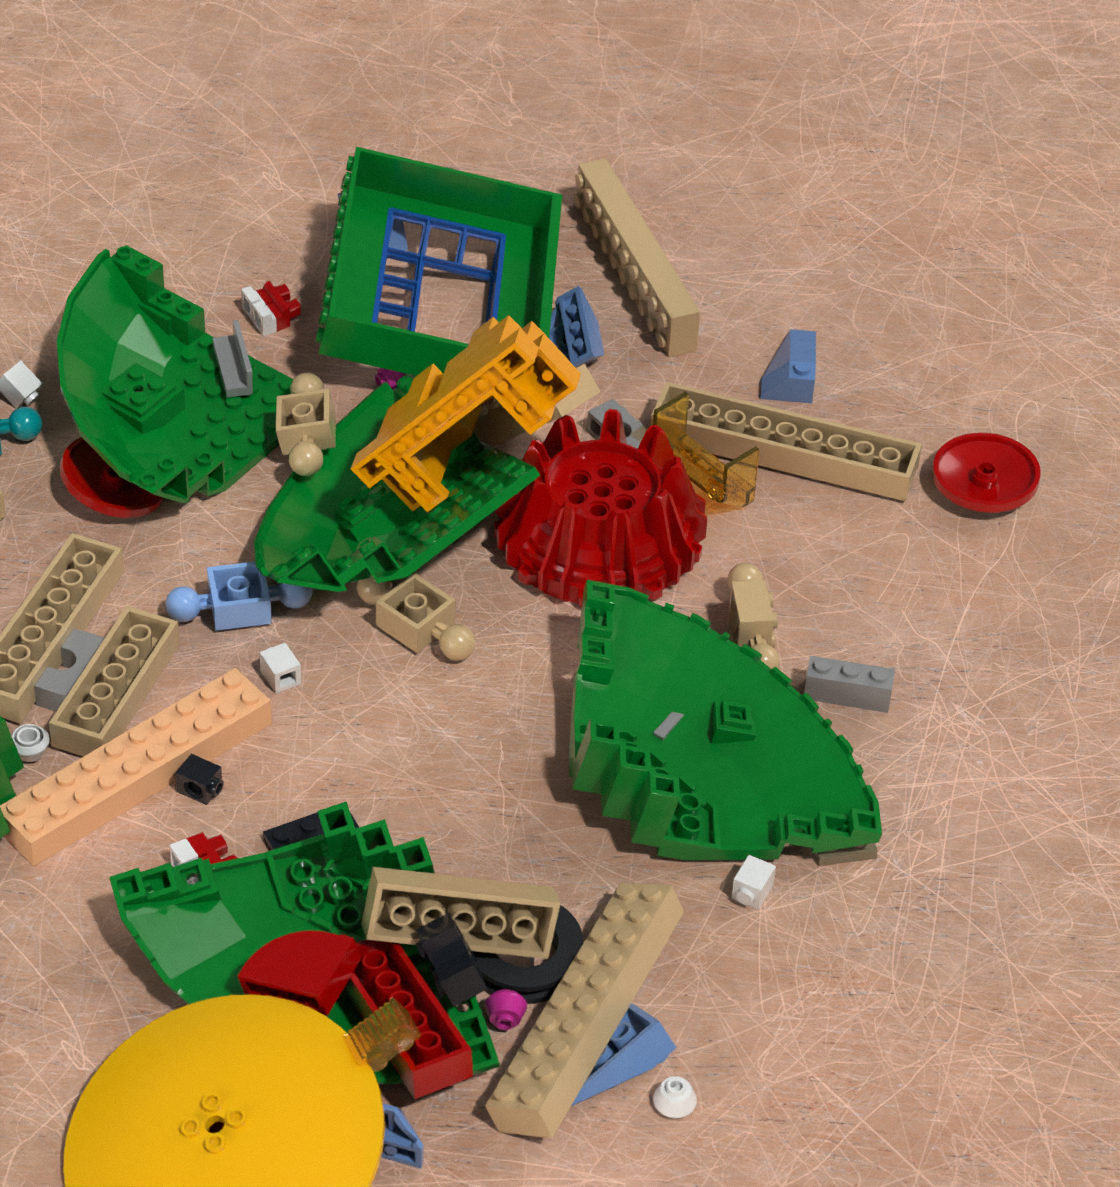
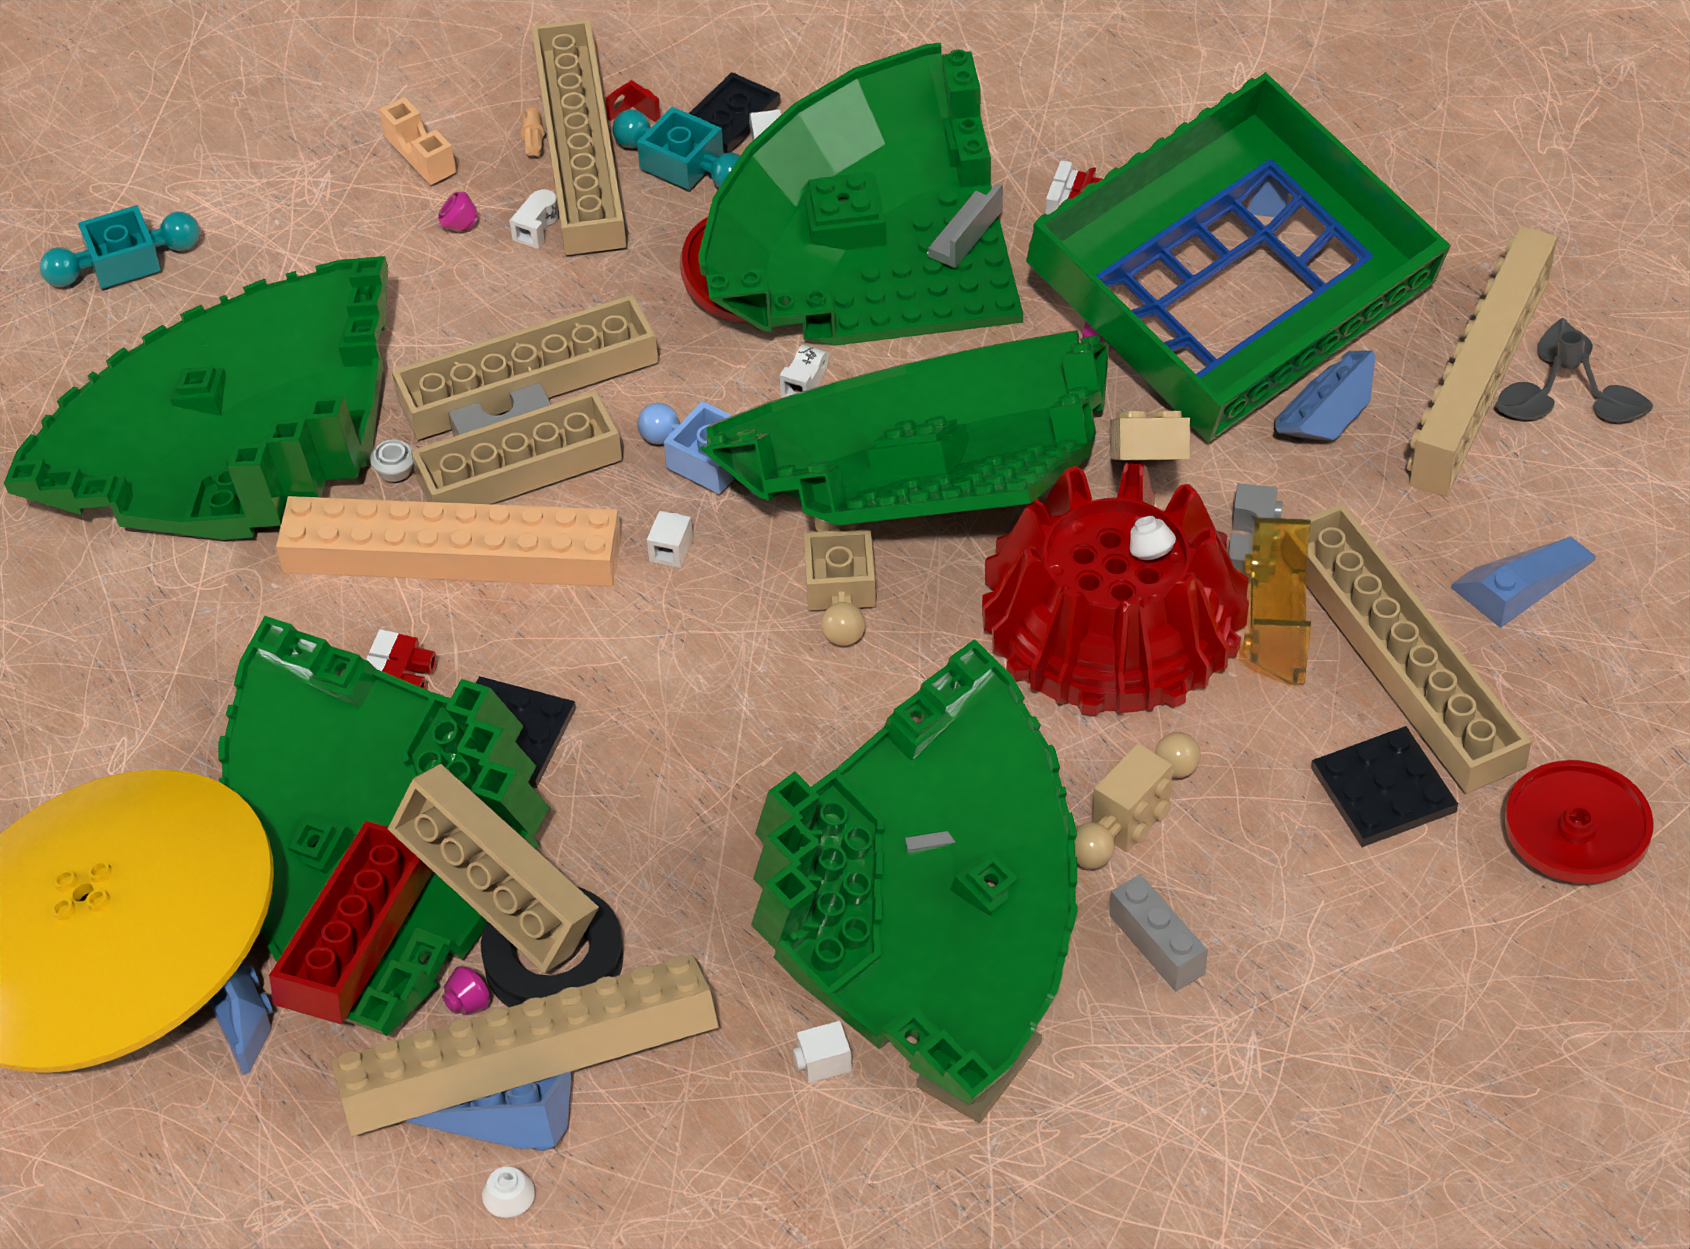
camera: 50 degrees right, 5 degrees up
(199, 779) = (483, 590): black brick -> none
(234, 513) = (805, 370): none -> white leg
(302, 968) = (314, 816): red brick -> none
(306, 423) = (951, 323): tan brick -> none
(382, 1036) = (280, 922): clear yellow brick -> none
(441, 409) = (1036, 389): light orange panel -> none
(453, 961) = (442, 907): black brick -> none
(613, 459) = (1151, 538): none -> white cone
(682, 221) = (1569, 348): none -> dark grey plant
(860, 526) = (1384, 786): none -> black plate

